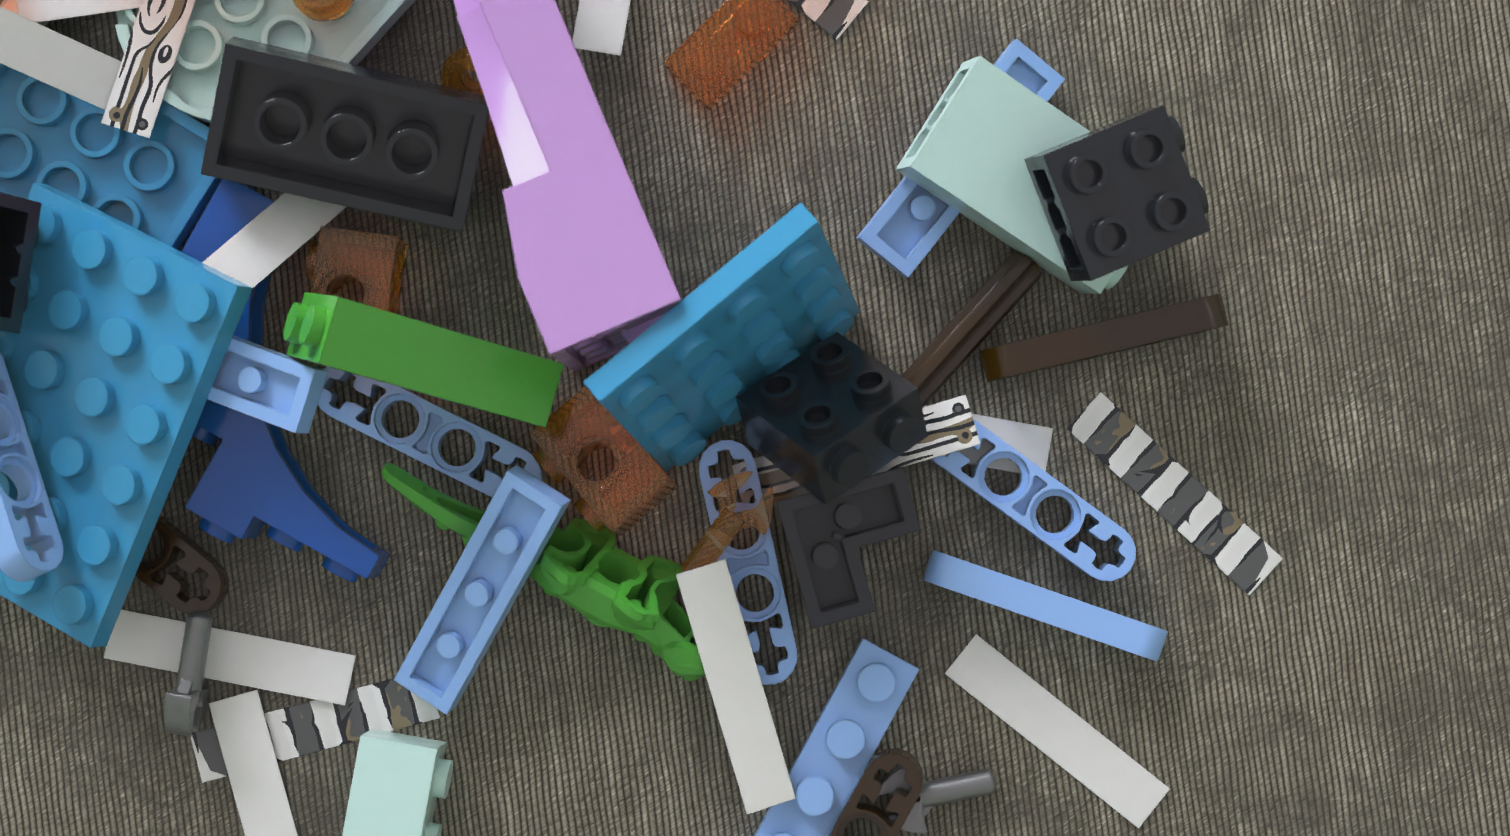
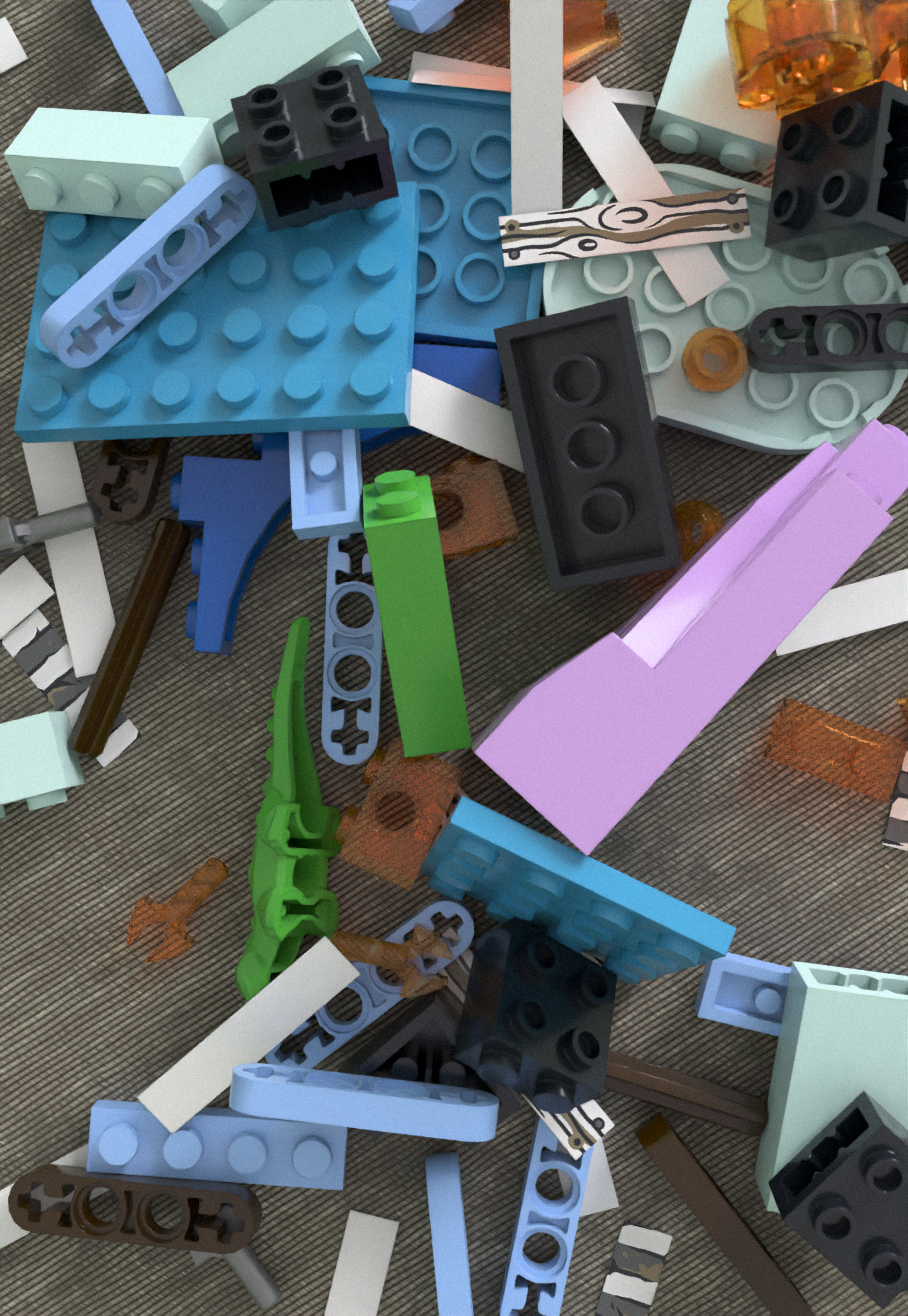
camera: 60 degrees right, 0 degrees up
(329, 636) = (129, 638): none -> dark brown axle
(482, 589) = (234, 760): light blue plate -> none
(600, 707) = (176, 911): none -> clear orange bar
(830, 601) = (364, 1102): none -> light blue beam

